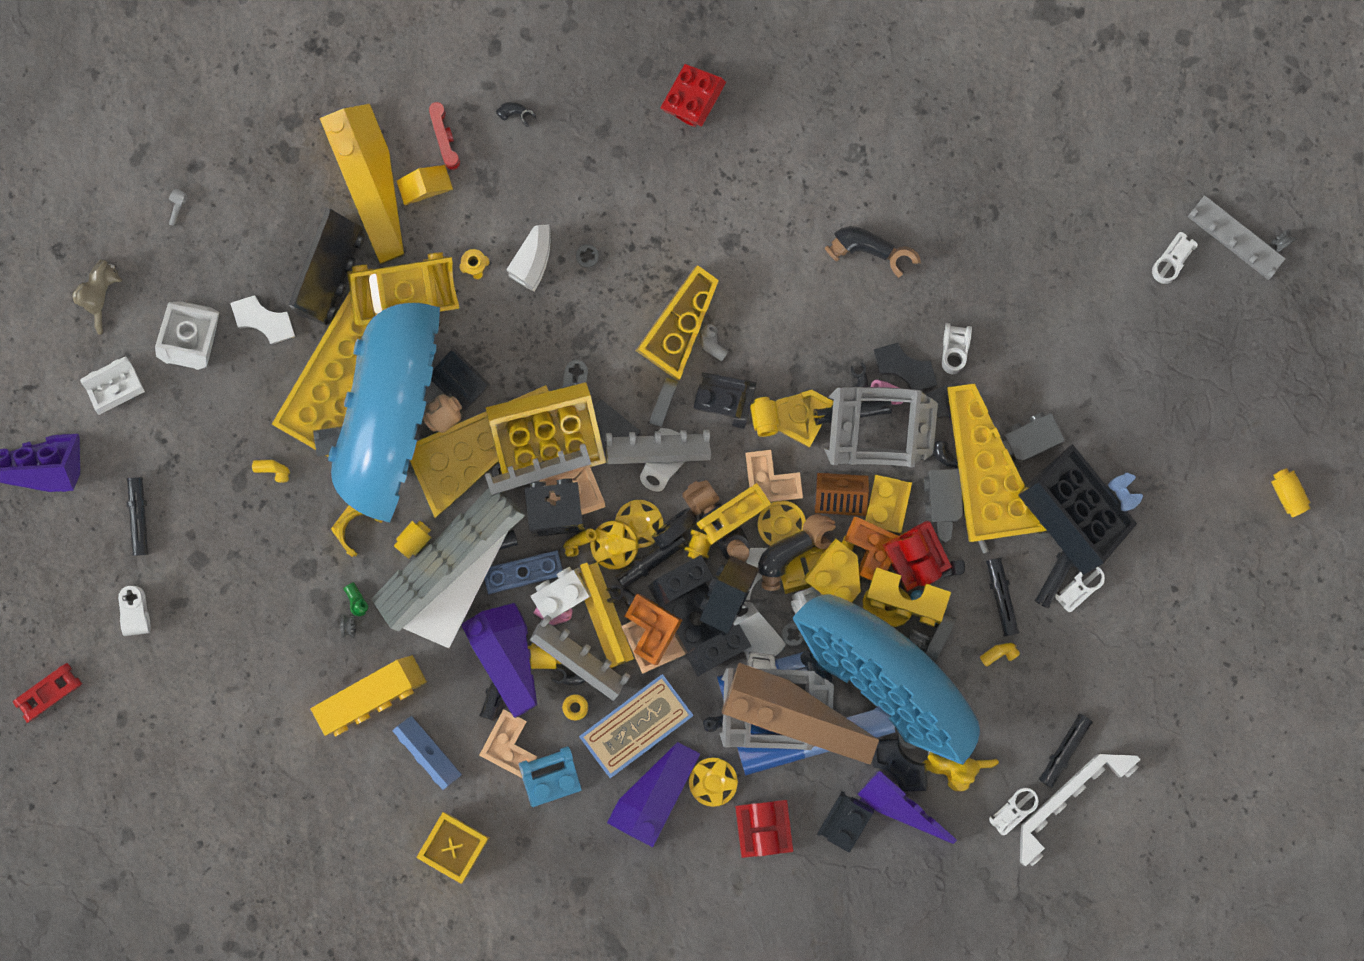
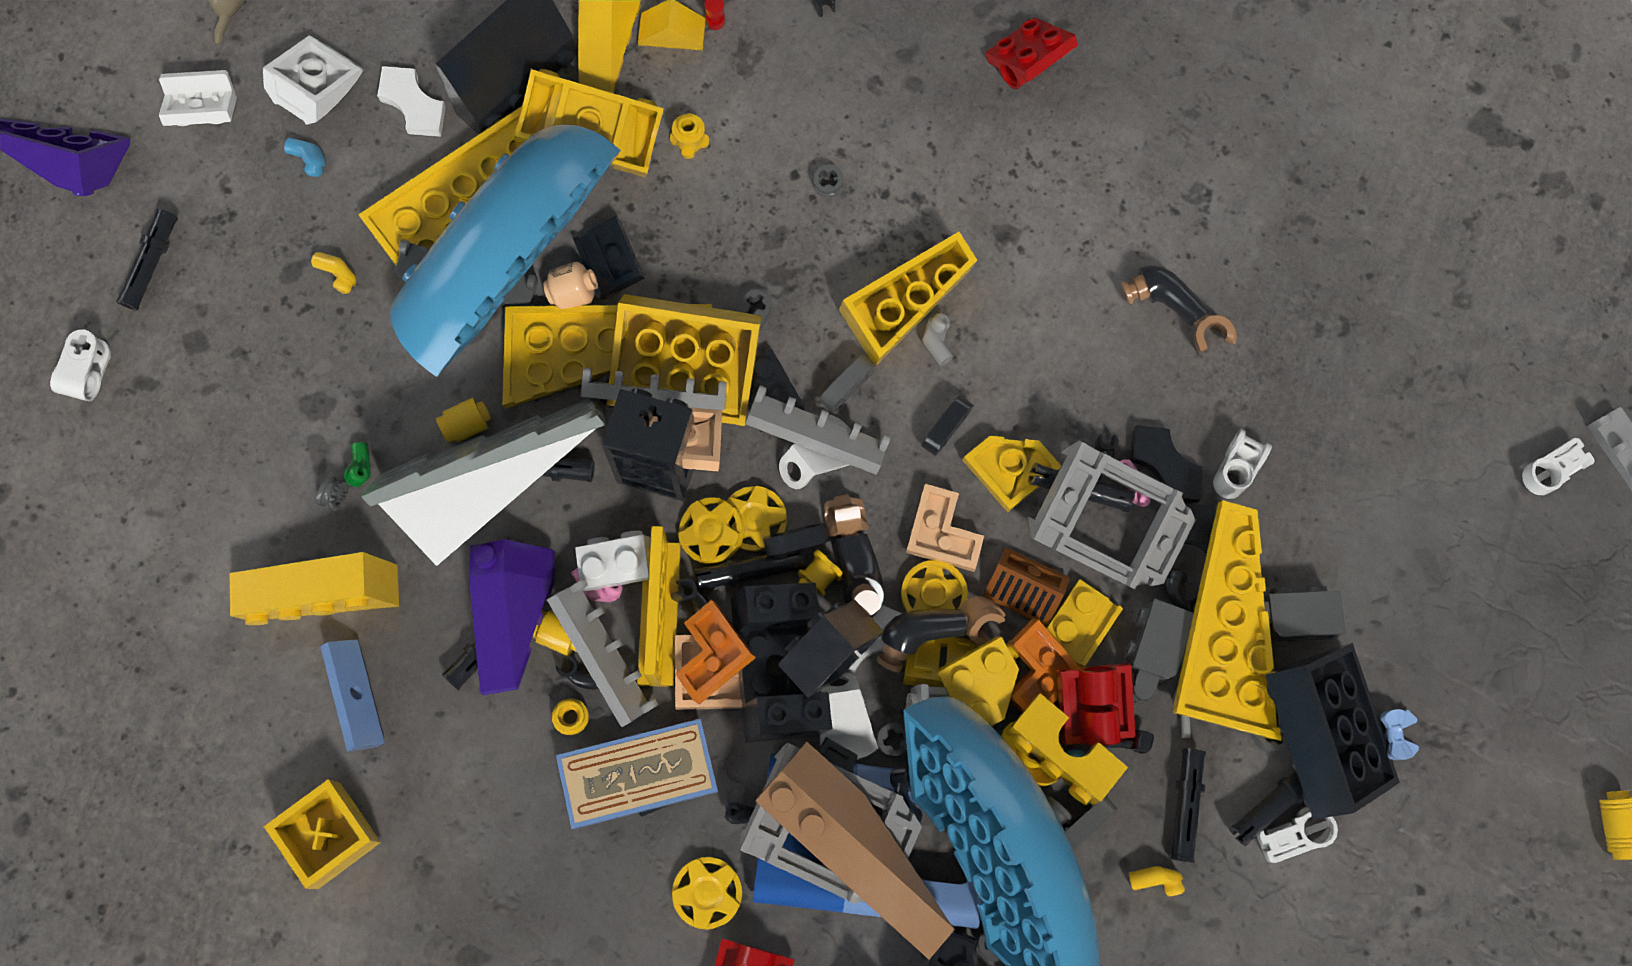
camera: 15 degrees right, 10 degrees down
(210, 390) = (310, 154): none -> dark azure arm
(340, 525) = (387, 369): yellow helmet -> none
(501, 746) = (451, 730): light nougat plate -> none
(531, 258) = (759, 147): white slope -> none
(539, 568) = (559, 516): medium blue tile -> none
(552, 784) = (492, 805): dark azure plate -> none
(582, 538) = (668, 507): yellow arm -> none
(651, 799) = (611, 884): dark purple wedge -> none
(721, 395) = (923, 402): black plate -> none
(735, 513) = (880, 549): yellow plate -> none
(765, 416) = (968, 447): yellow brick -> none

